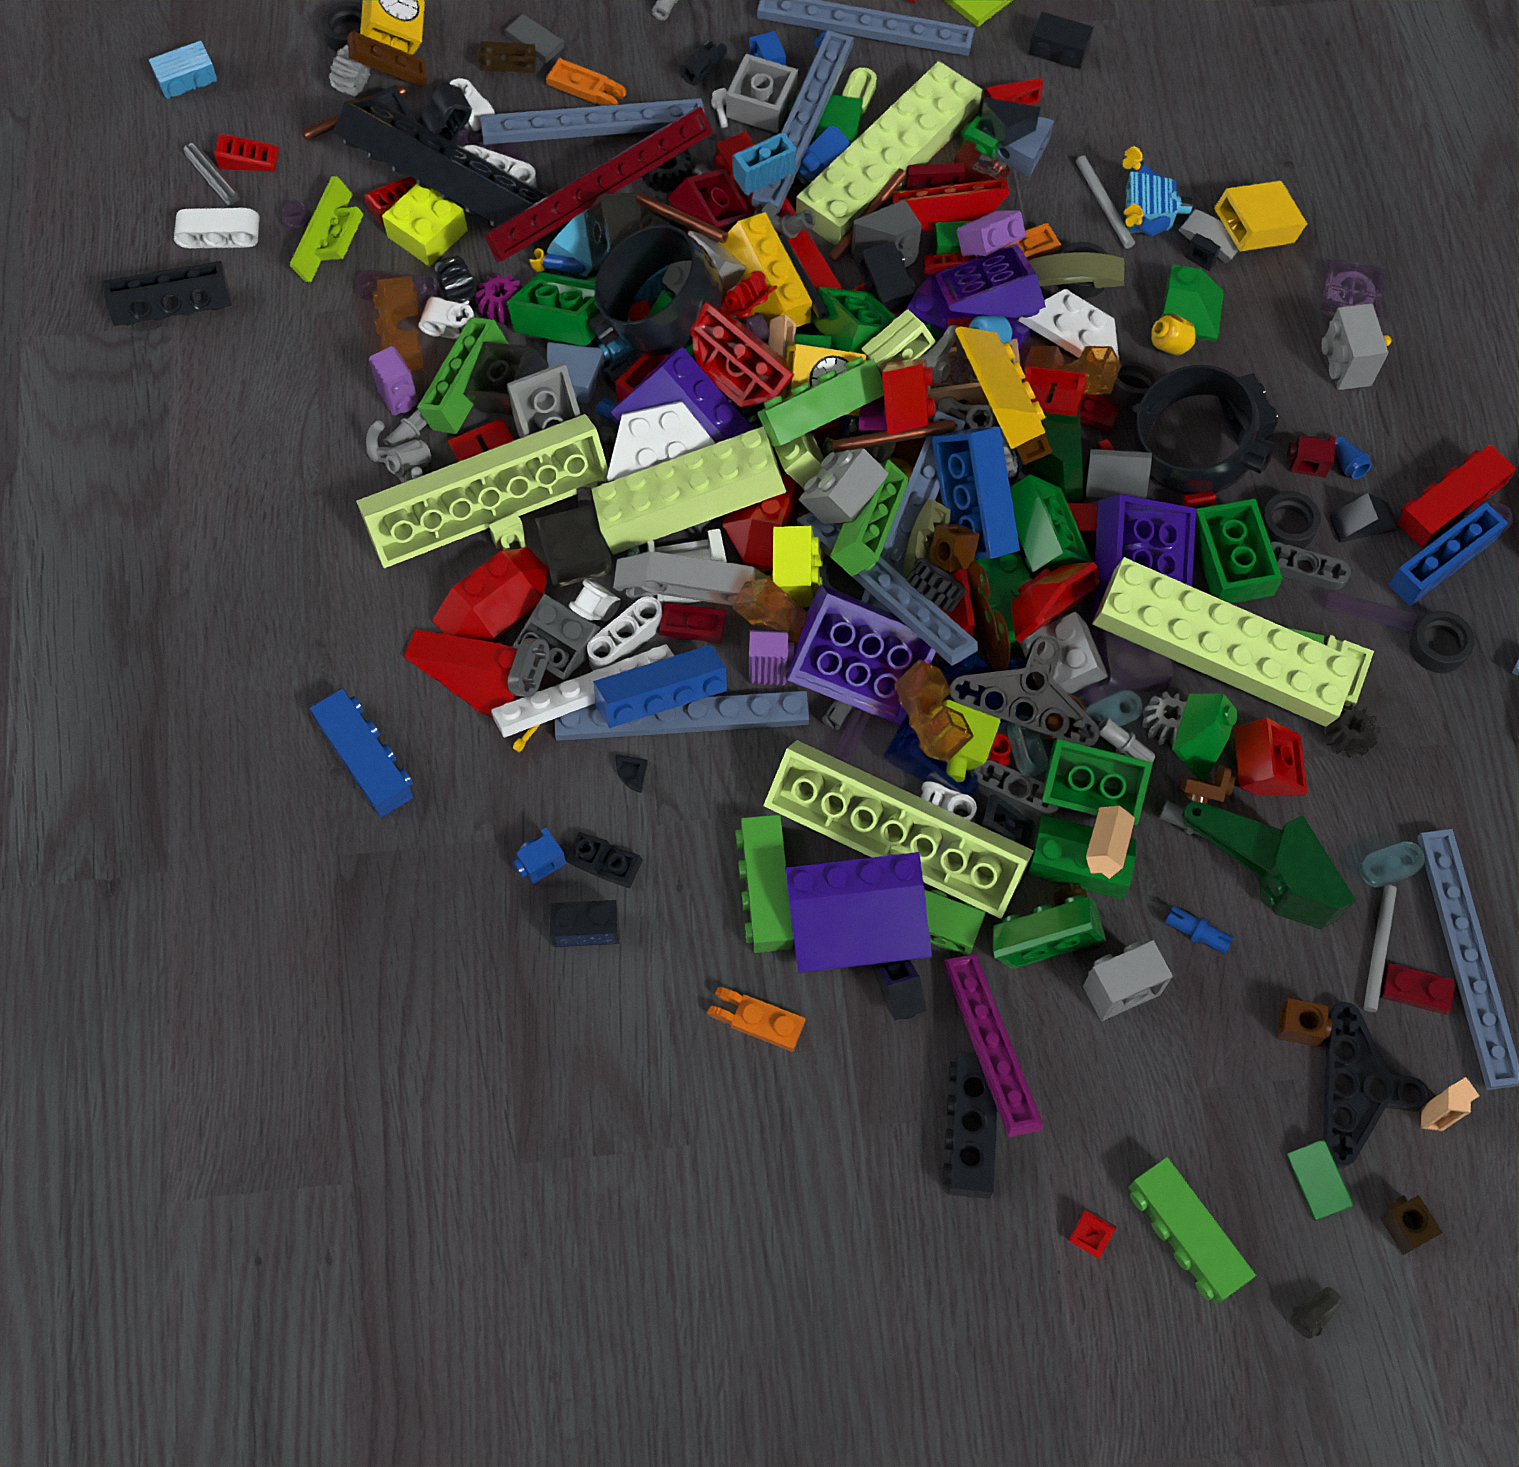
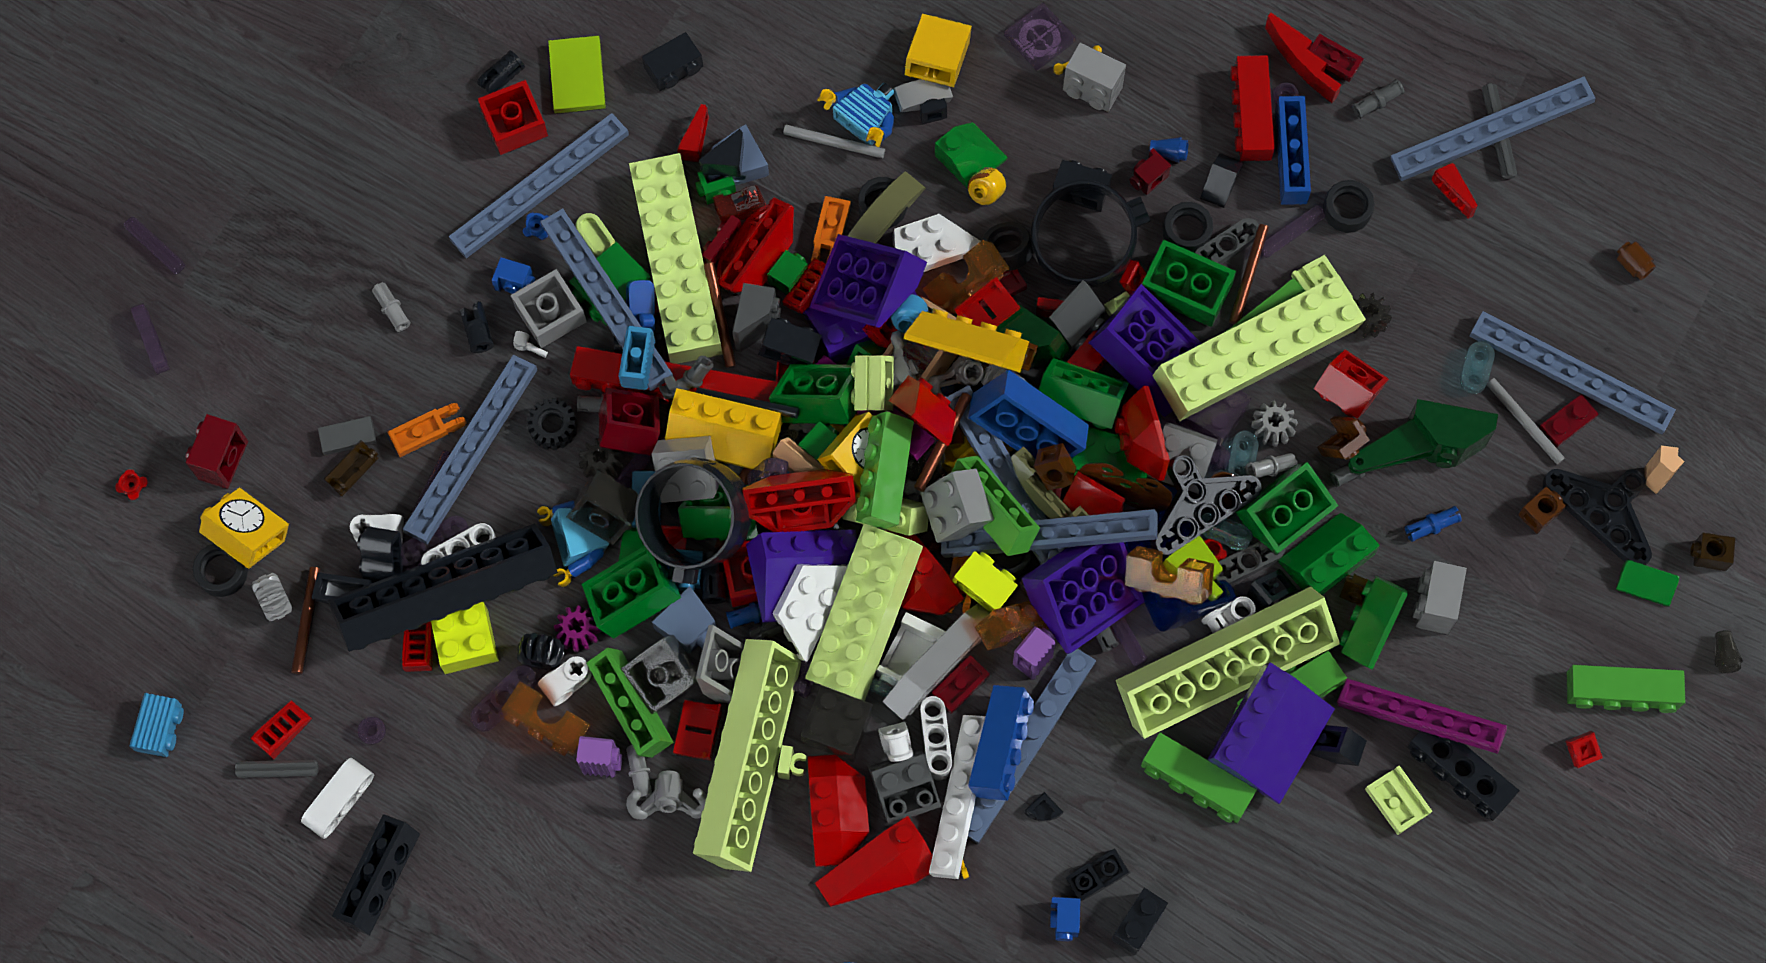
camera: 50 degrees left, 5 degrees up
(328, 230) = (412, 712): lime bracket -> none
(386, 58) = (287, 561): reddish brown tile -> none
(528, 667) = (921, 823): dark grey beam -> none
(606, 178) = (553, 488): dark red plate -> none
(682, 218) = (625, 450): copper piece -> none
(746, 295) = (743, 455): red hinge -> none
(759, 1019) = (1291, 853): orange hinge -> none
(892, 1084) = (1398, 800): none -> yellowish green plate
(936, 584) = (1079, 501): black tyre -> none
(991, 233) = (813, 244): medium lavender brick -> none
(1110, 840) = (1344, 532): light nougat piece -> none
(1204, 731) = (1307, 409): green slope -> none
(1304, 597) = (1249, 273): none -> copper bar

